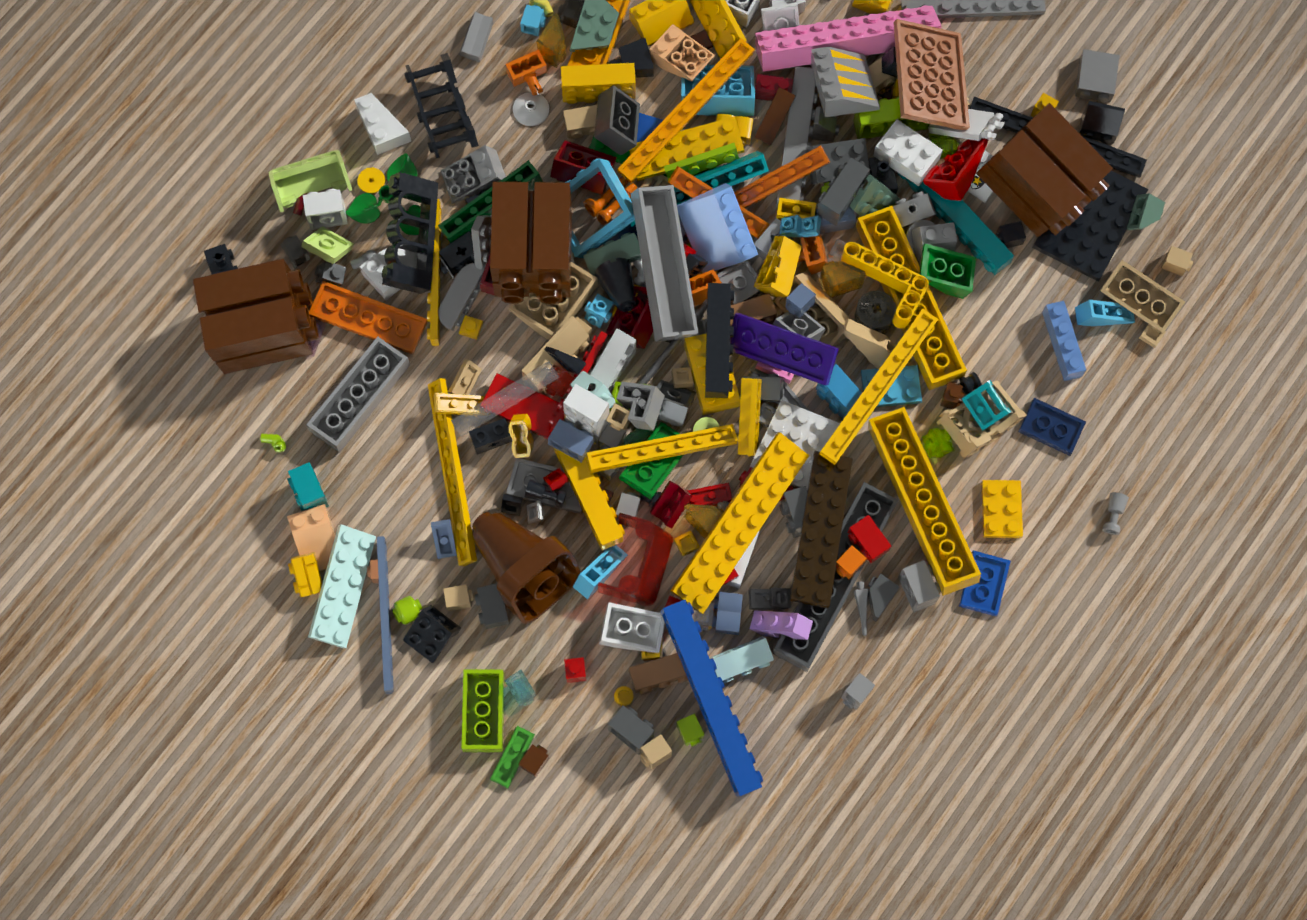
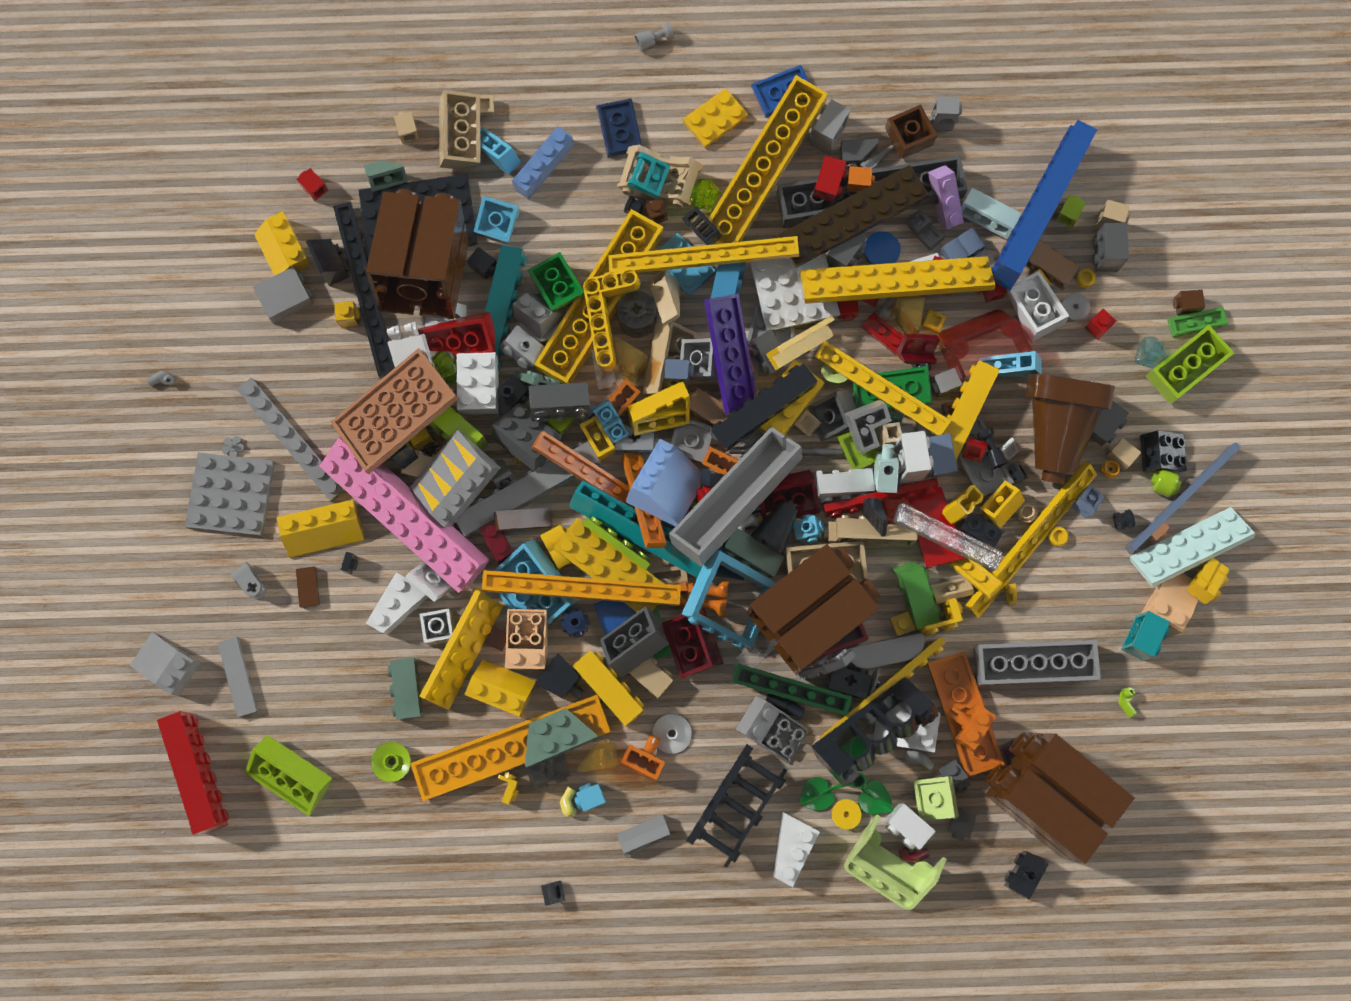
camera: 125 degrees left, 5 degrees up
(354, 306) = (972, 726): none -> orange brick
(406, 554) = (1124, 520): none -> black wheel
(426, 423) = (1011, 594): none -> yellow tile
(437, 496) = (1058, 536): none -> yellow tile
(447, 362) = (952, 611): none -> yellow bracket
(454, 575) = (1110, 464): none -> light orange plate
(473, 485) = (1027, 513): none -> tan plate
(484, 350) = (917, 594): none -> bright green wedge
(496, 468) = (1002, 504): none -> yellow brick
(606, 665) = (1076, 306): none -> light grey piece
(666, 97) = (578, 630): none -> dark blue brick
(779, 551) = (882, 248): none -> blue tile
(864, 651) = (910, 131): none -> reddish brown brick
(906, 404) = (711, 235): none -> black slope
(1042, 272) = (496, 218): none -> medium azure slope
(1142, 103) = (281, 245): none -> yellow slope
(1179, 157) = (312, 184): none -> red brick

